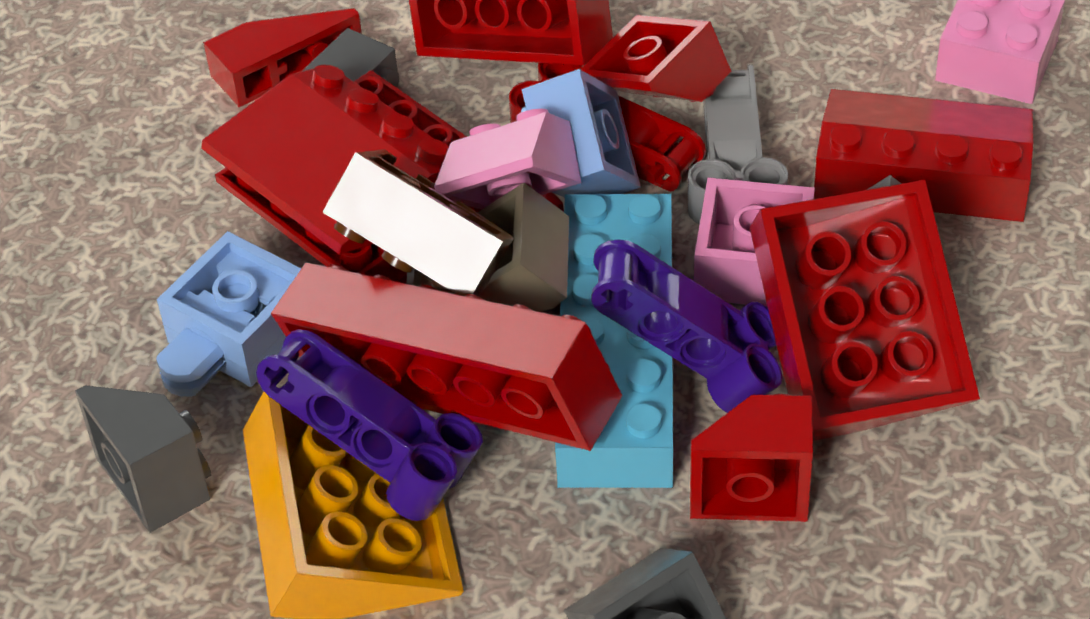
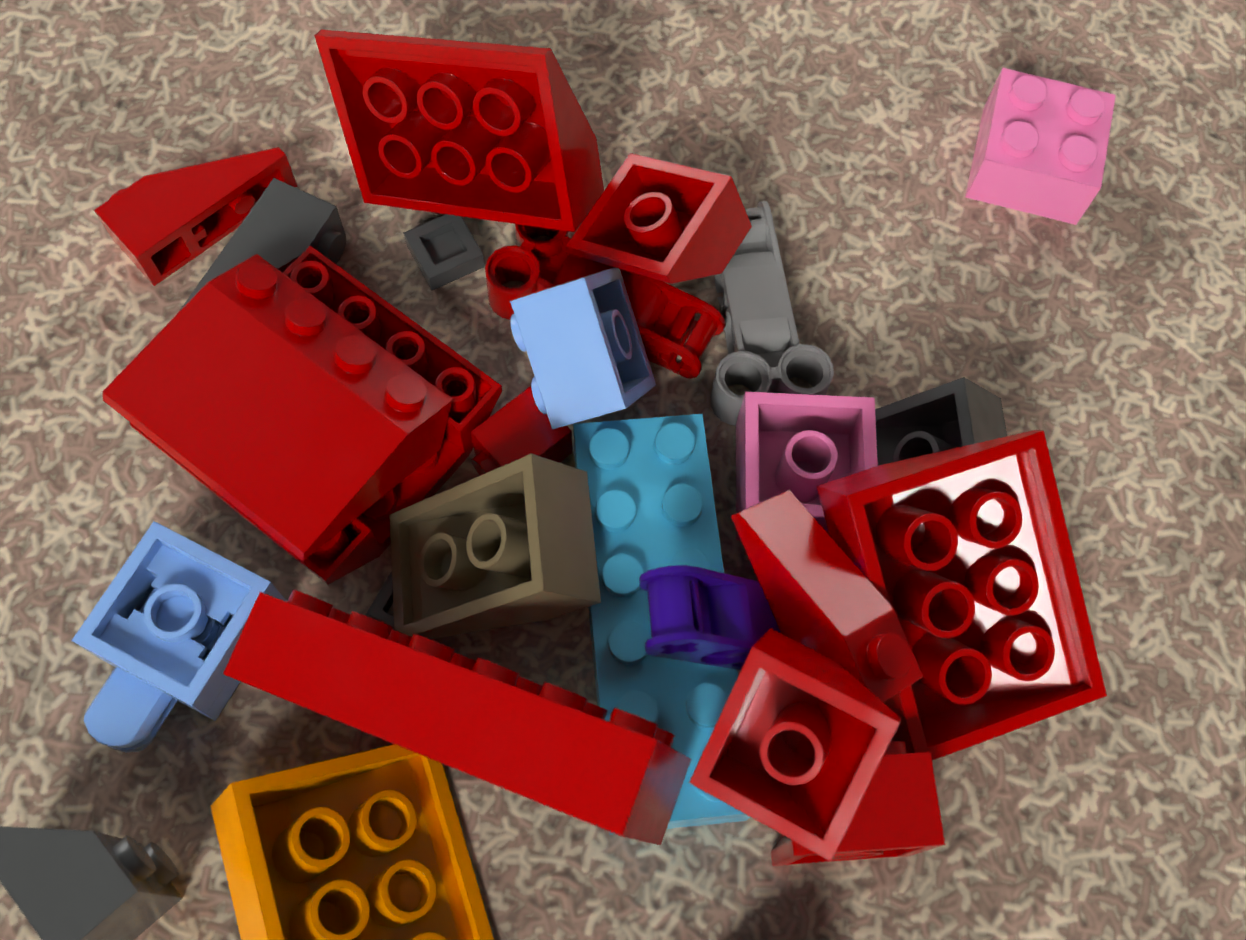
camera: 15 degrees left, 20 degrees up
(372, 422) = (372, 810): dark purple piece -> none
(416, 224) = (402, 551): wedge -> none
(478, 90) = (444, 250): none -> dark grey plate
(500, 158) = (504, 413): bright pink slope -> none
(691, 357) = (796, 743): none -> red slope
(742, 302) = (824, 596): none -> red slope
(966, 152) = (978, 307): red slope -> none

